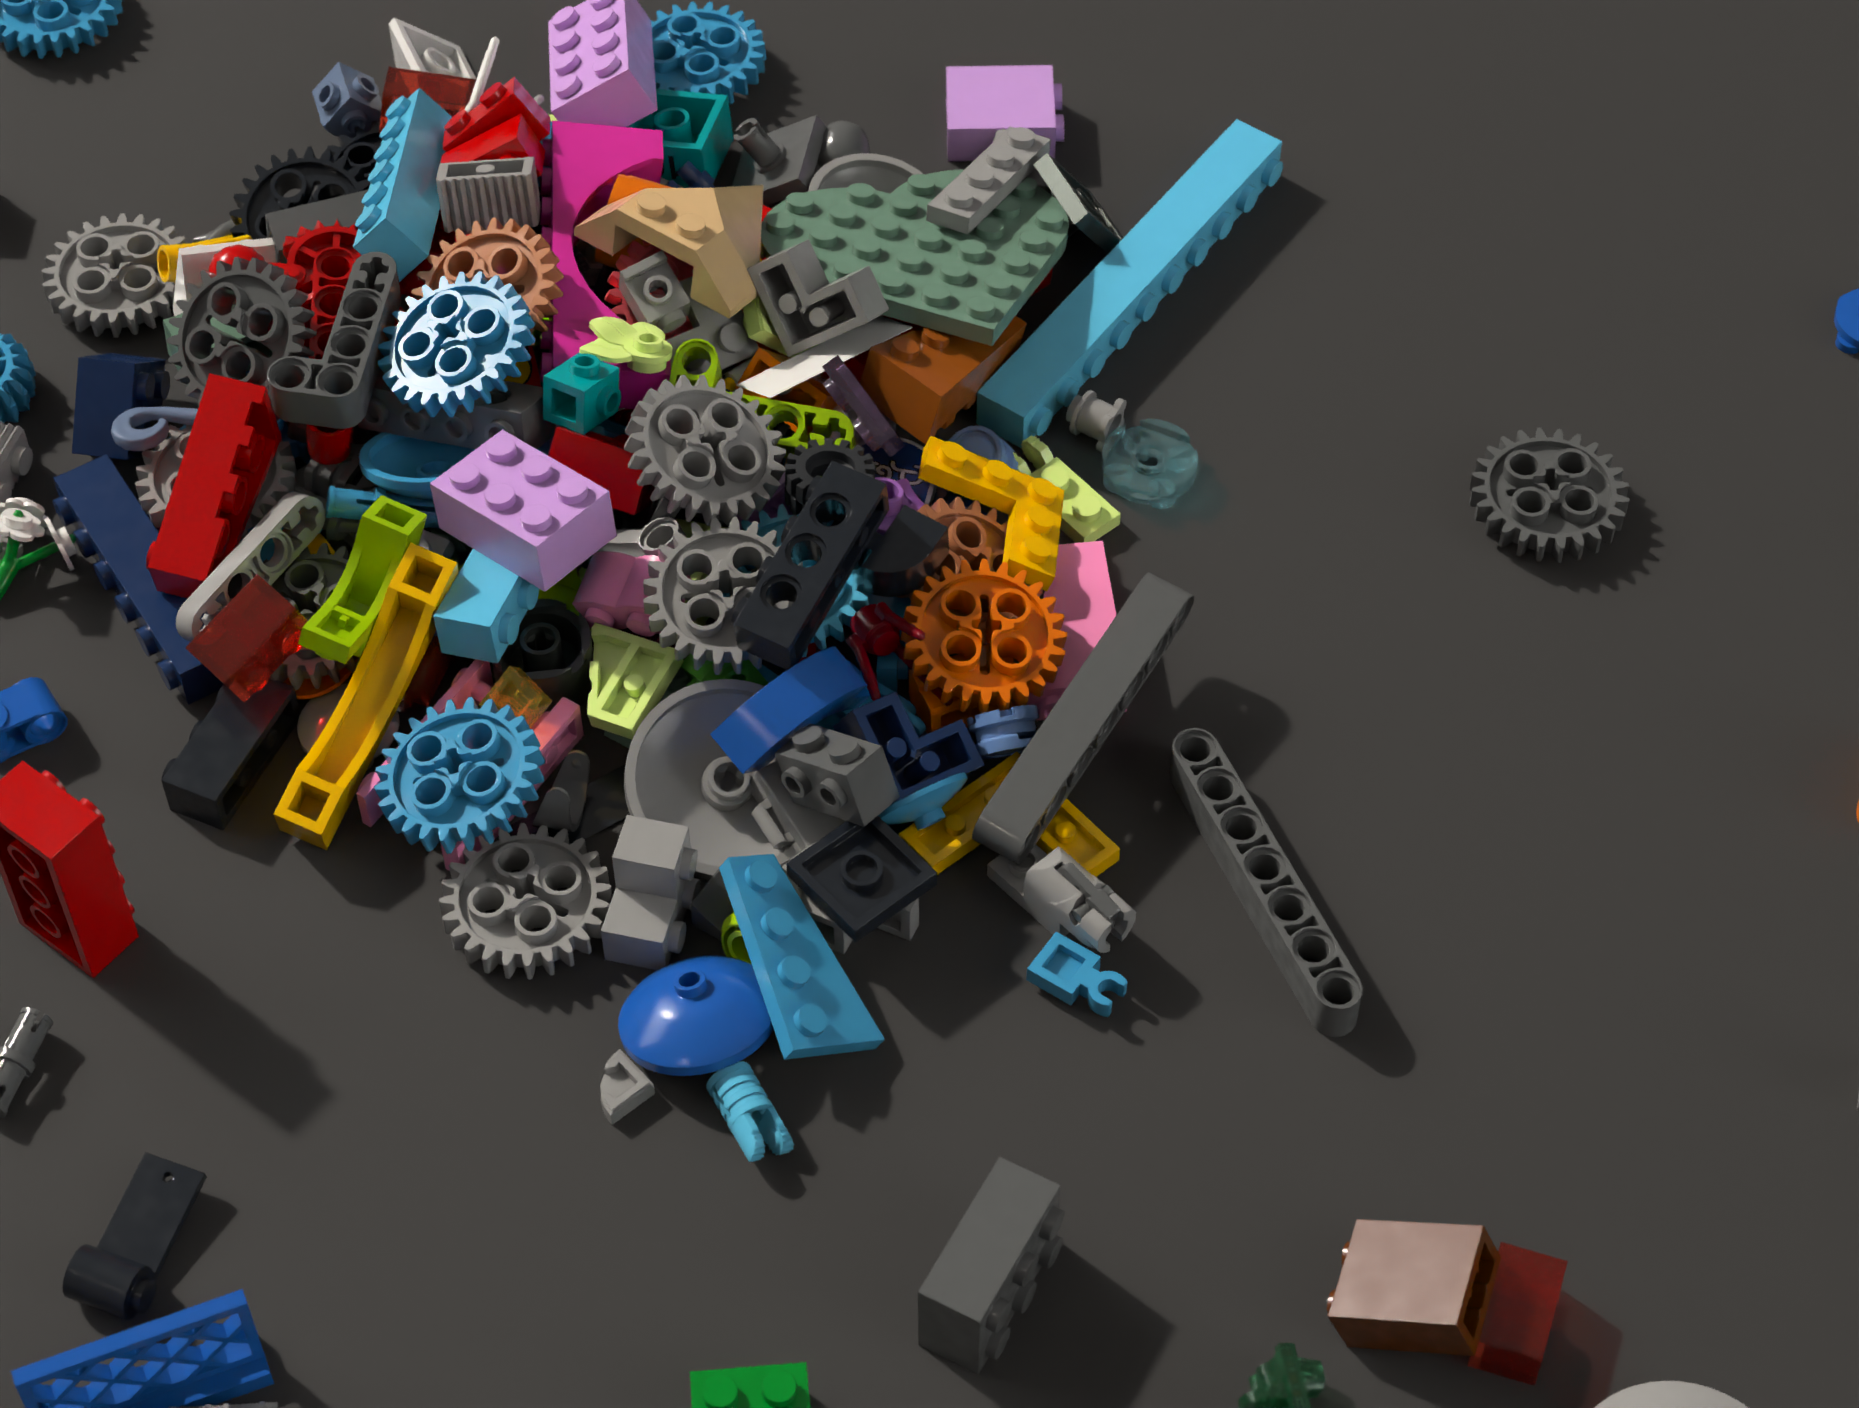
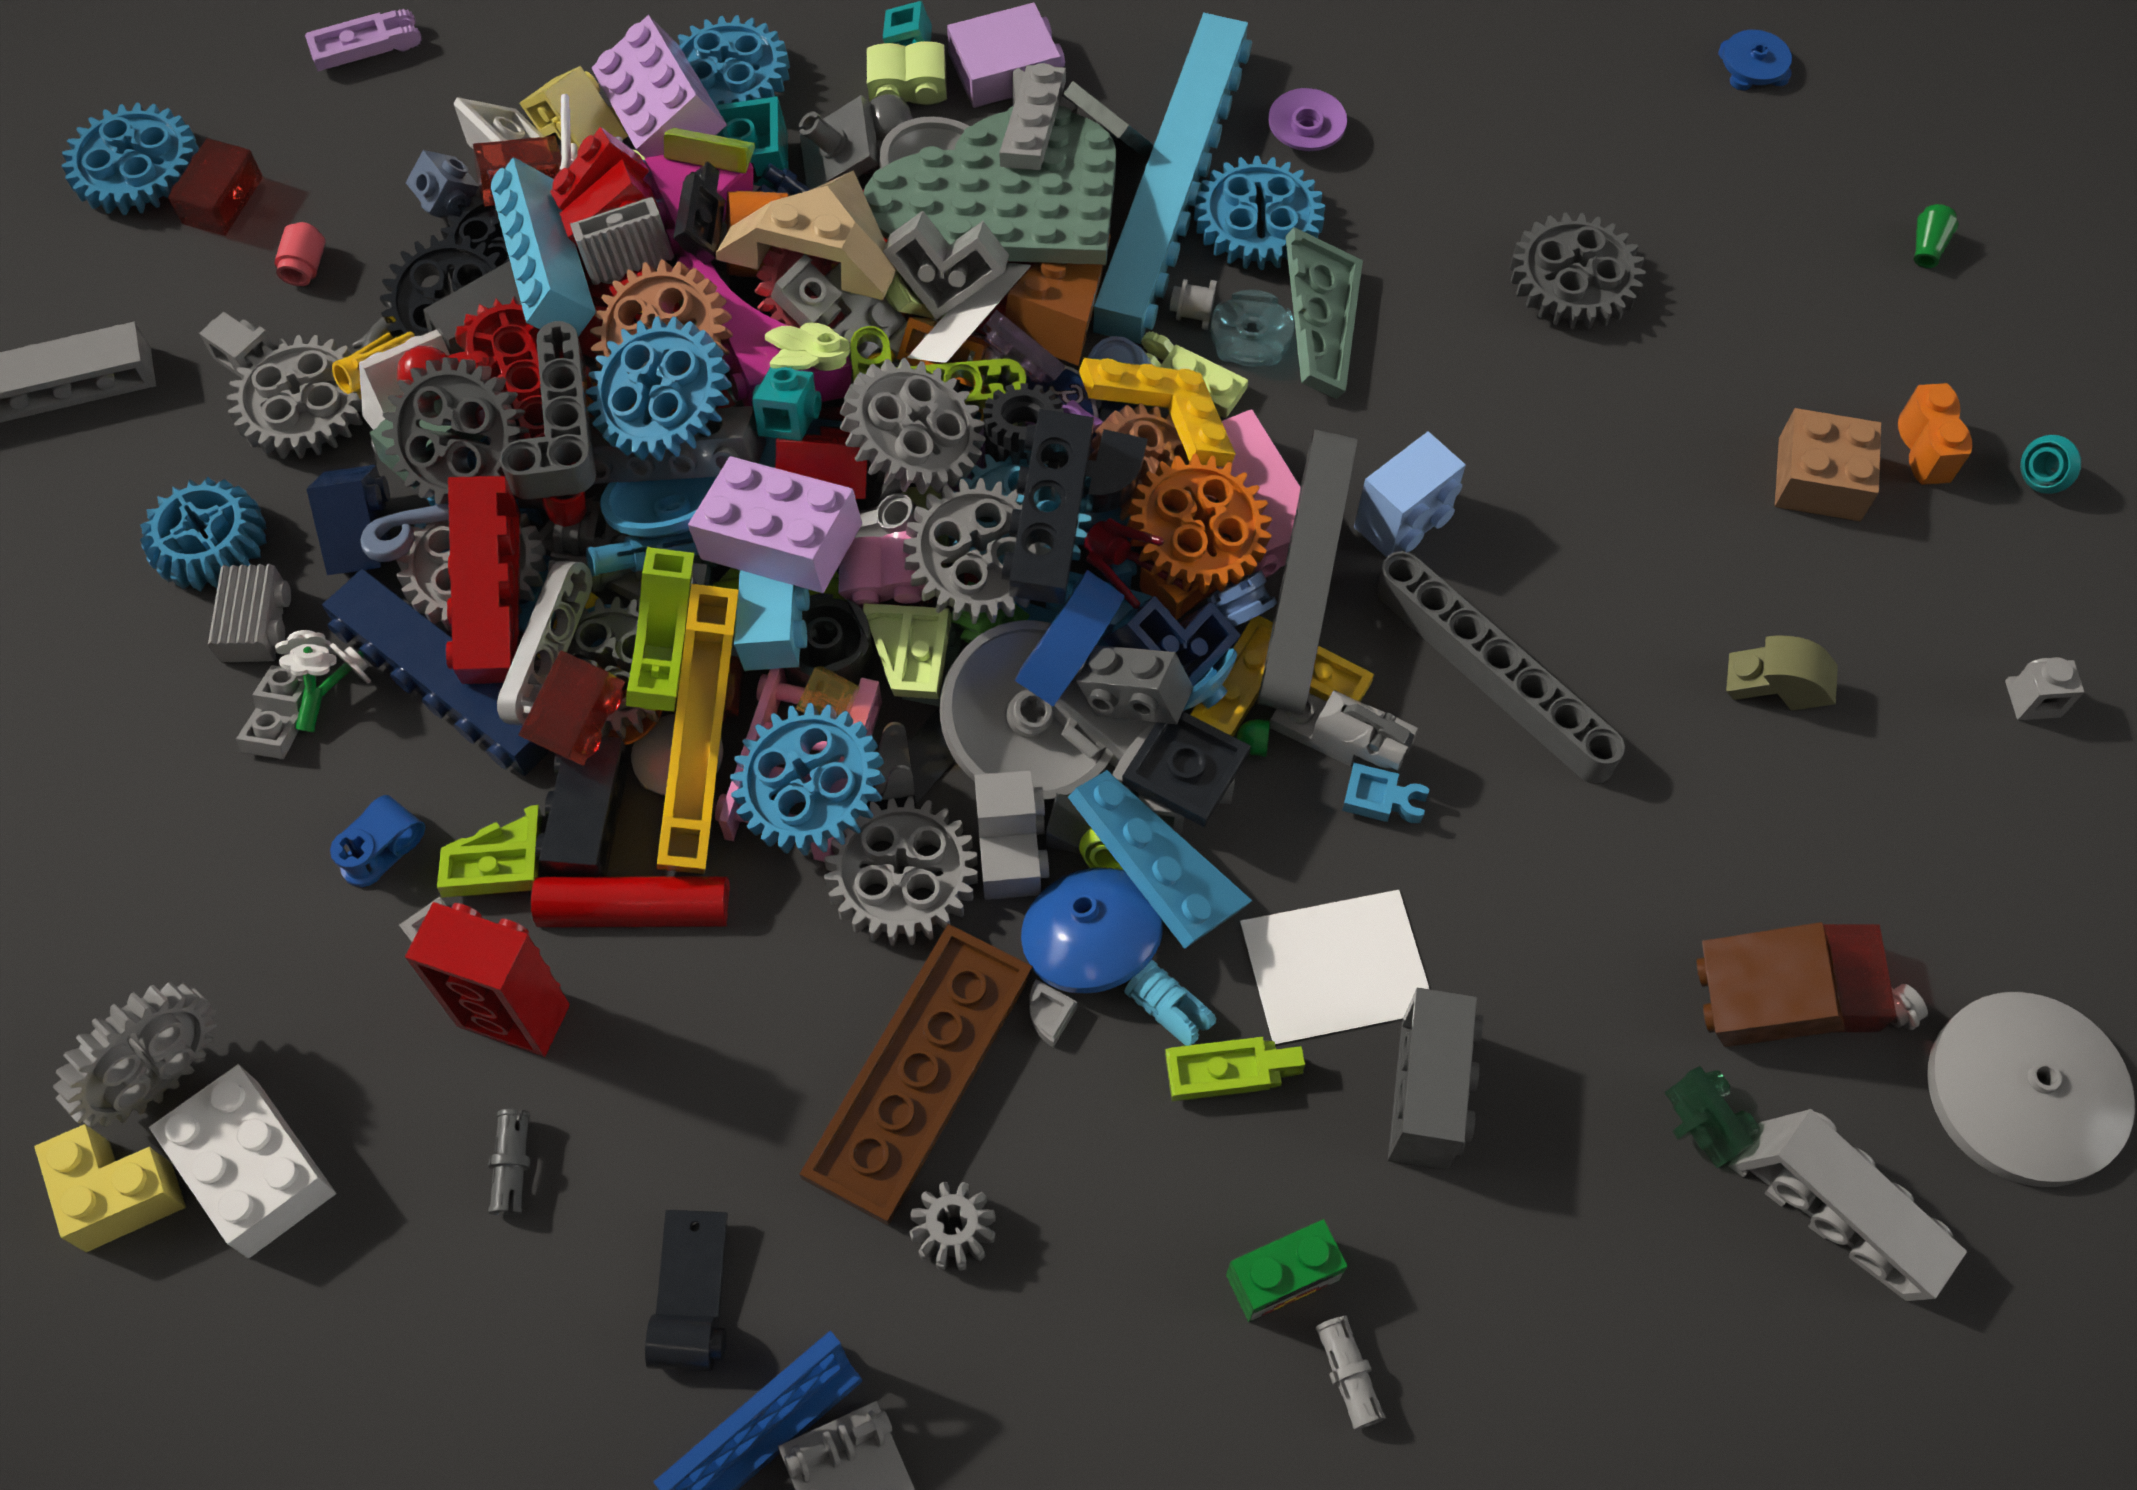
camera: 20 degrees left, 10 degrees up
(76, 203) = (234, 341): none -> light grey brick
(120, 771) = (492, 859): none -> lime wing
(122, 50) = (215, 186): none -> clear red brick
(177, 136) = (299, 254): none -> coral brick
(240, 852) = (630, 901): none -> red brick
(421, 1240) = (932, 1229): none -> light grey gear
(456, 1102) = (916, 1074): none -> reddish brown plate
(516, 56) = (586, 107): none -> light yellow brick
(578, 186) = (700, 214): none -> black hinge
(621, 128) = (701, 147): none -> lime slope
(786, 1196) = (1229, 1067): none -> lime hinge
(888, 106) = (909, 72): none -> yellowish green brick
(904, 67) = (907, 24): none -> teal brick
(943, 1129) = (1334, 965): none -> white sticker
(963, 878) = (1256, 735): none -> green hinge
(1237, 459) = (1324, 308): none -> sand green wing
(1237, 674) = (1409, 496): none -> light blue brick
(1242, 355) = (1229, 214): none -> dark azure gear
(1310, 260) = (1307, 119): none -> medium lavender dish
(1567, 1363) = (1909, 1007): none -> light grey plate
(1597, 974) = (1788, 667): none -> olive brick
(1746, 773) = (1828, 464): none -> medium nougat brick

